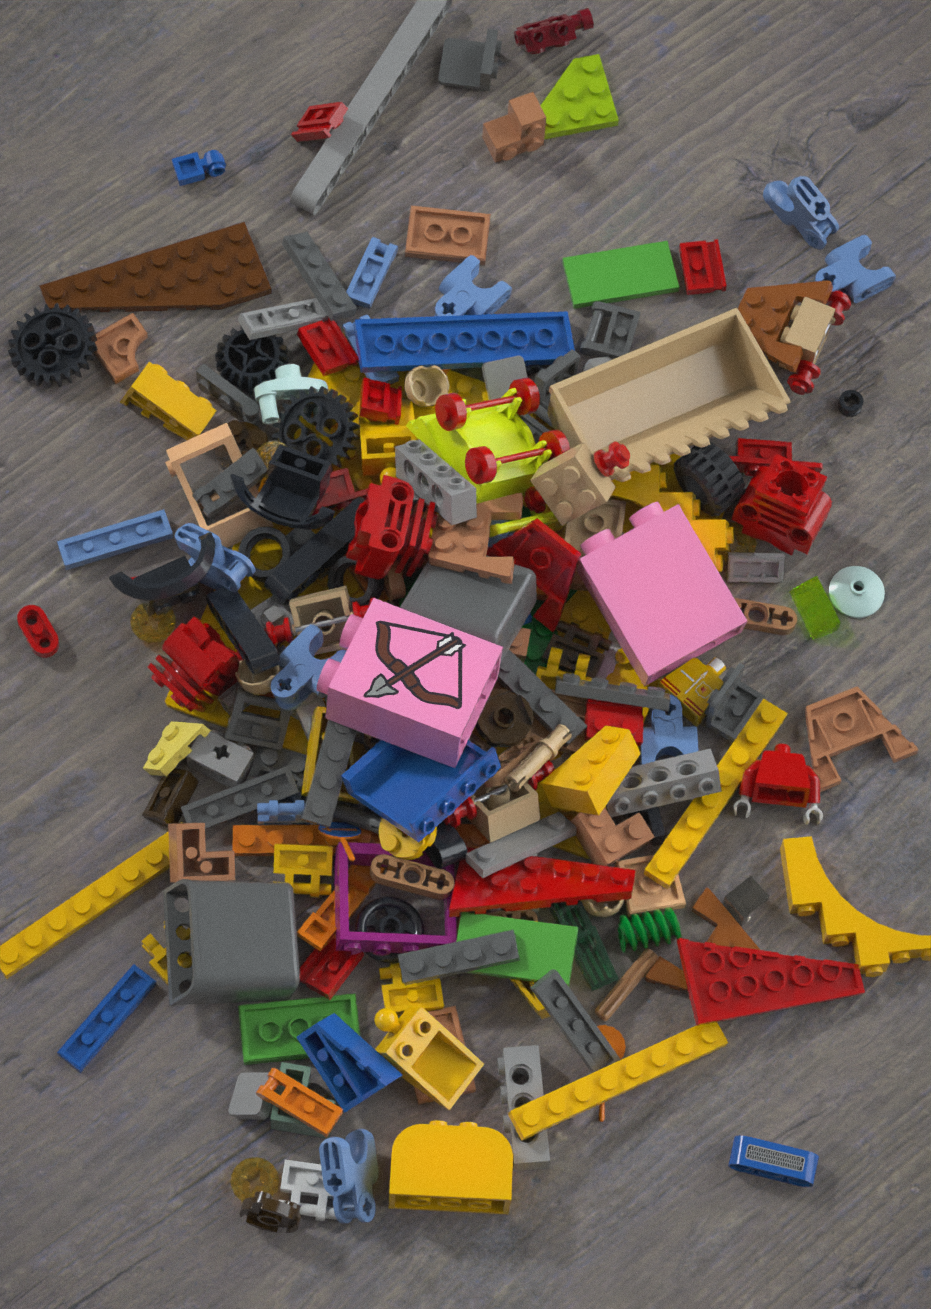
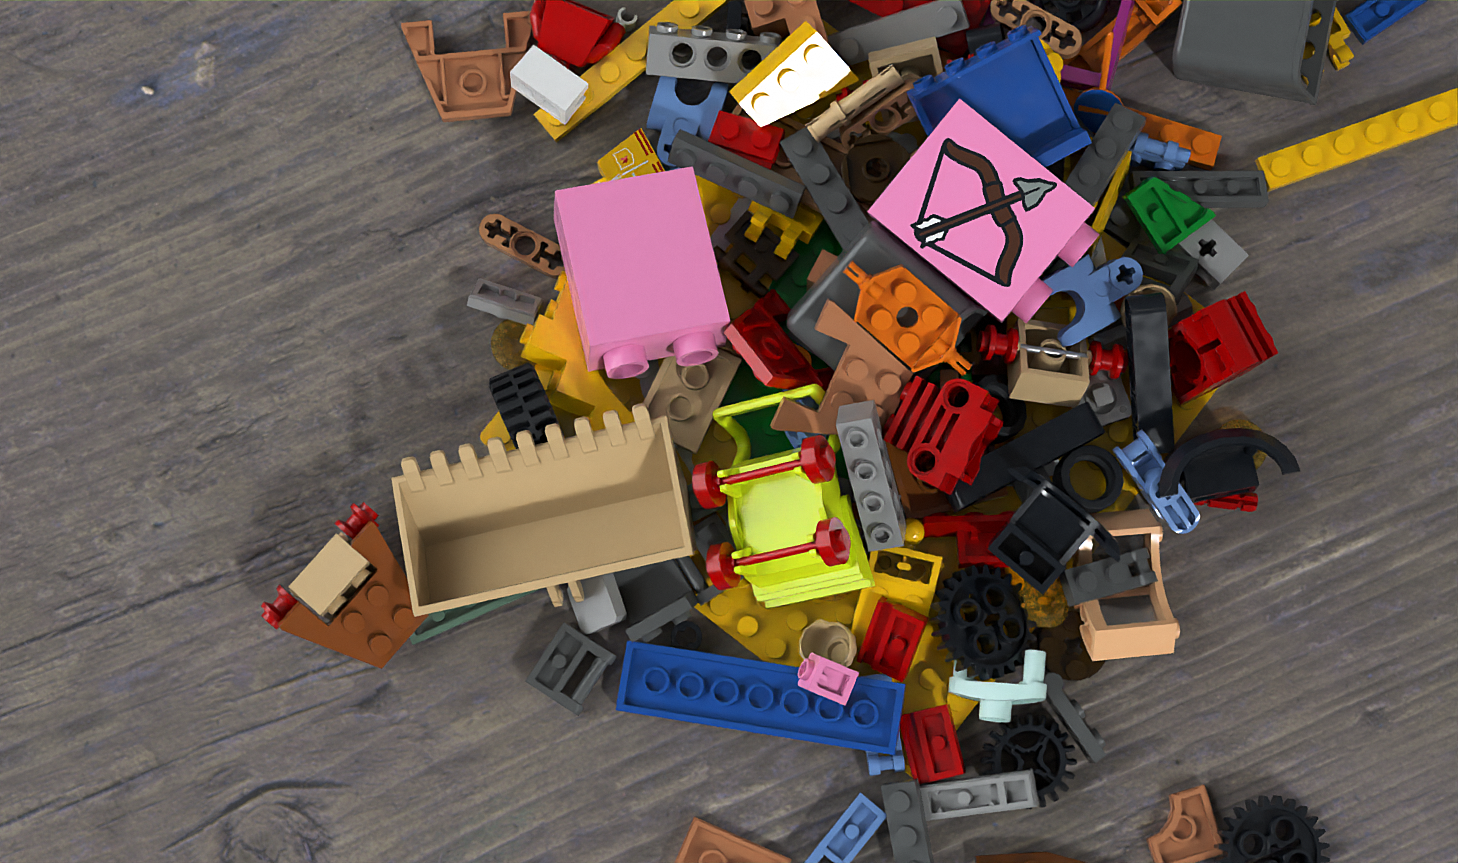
camera: 160 degrees left, 15 degrees up
(39, 632) = (1382, 473): red plate -> none
(115, 539) = (1258, 565): medium blue plate -> none
(169, 401) = (1150, 725): yellow wedge -> none
(169, 796) = (1273, 226): dark brown slope -> none
(173, 747) = (1259, 273): light yellow wing -> none
(191, 860) = (1271, 123): nougat brick -> none
(262, 761) = (1165, 213): none -> green wing
(304, 860) = (1150, 89): yellow plate -> none
(421, 352) = (827, 678): none -> bright pink bracket
(426, 578) = (918, 345): none -> orange plate
(464, 297) = (738, 767): medium blue piece -> none
(501, 373) = (725, 630): light grey piece -> none
(576, 481) = (700, 419): tan brick -> none
(620, 274) = (529, 748): bright green tile -> none
(702, 267) = (423, 725): red plate -> none
(732, 705) = (594, 135): dark grey bracket -> none
(757, 453) = (435, 432): red bracket -> none
(784, 505) = (476, 354): red piece -> none
(784, 725) = (548, 84): none -> white hinge
(803, 207) = (272, 761): medium blue piece -> none
(815, 608) = (453, 234): clear neon green slope -> none
(850, 276) = (245, 657): medium blue piece -> none
(852, 602) = (397, 261): light aqua dish -> none
(856, 408) = (308, 475): black bush -> none

